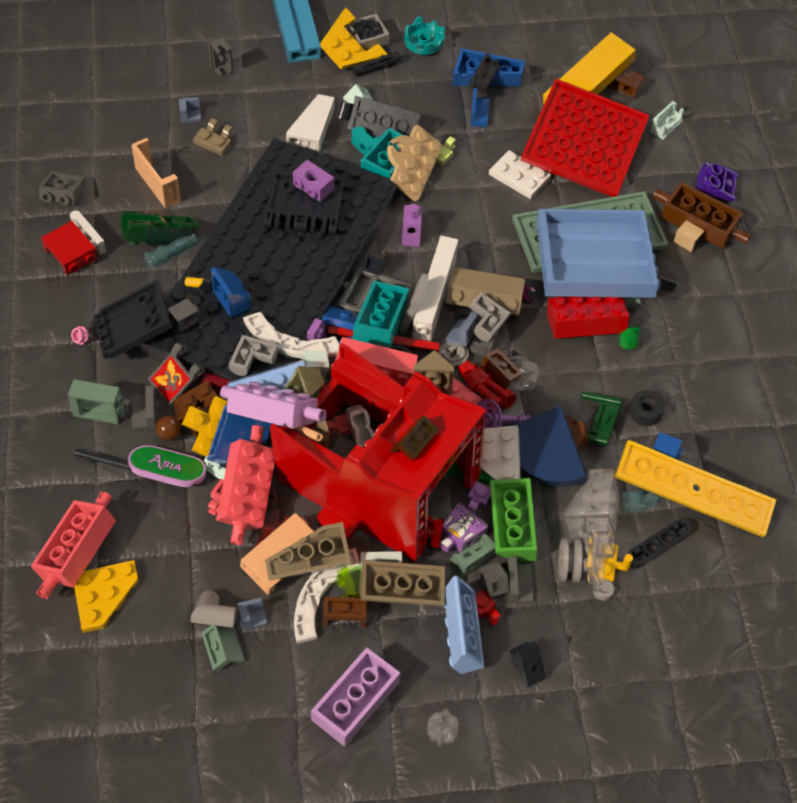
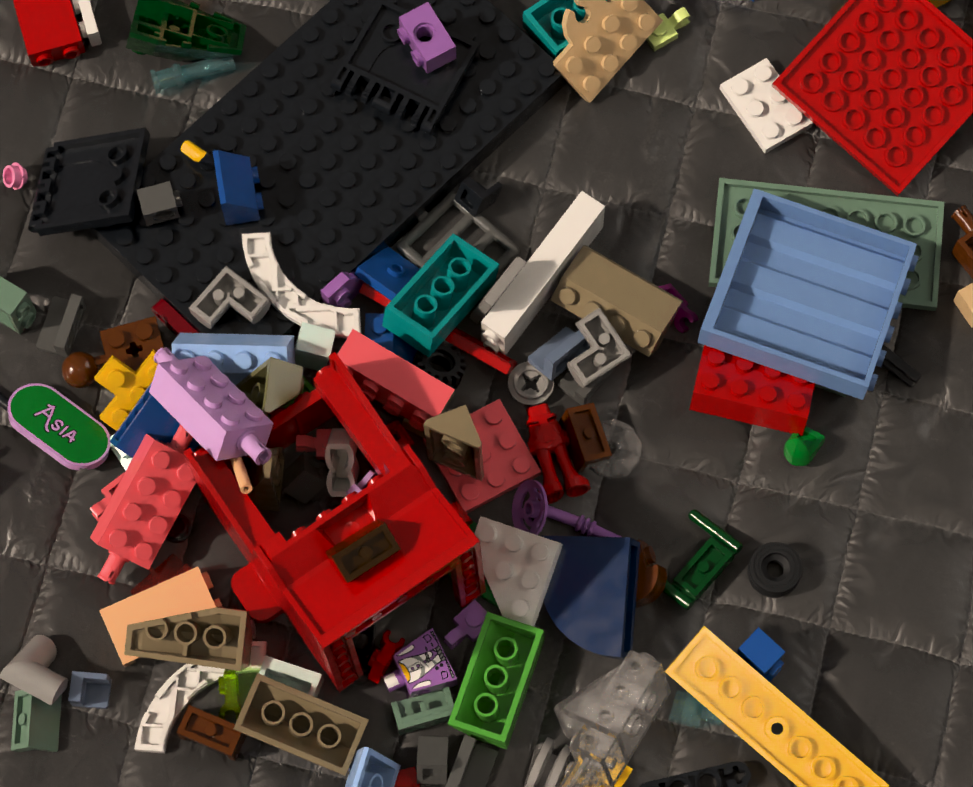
camera: 25 degrees right, 15 degrees up
(172, 377) = (113, 290): flag -> none
(412, 219) = (560, 145): medium lavender torso -> none

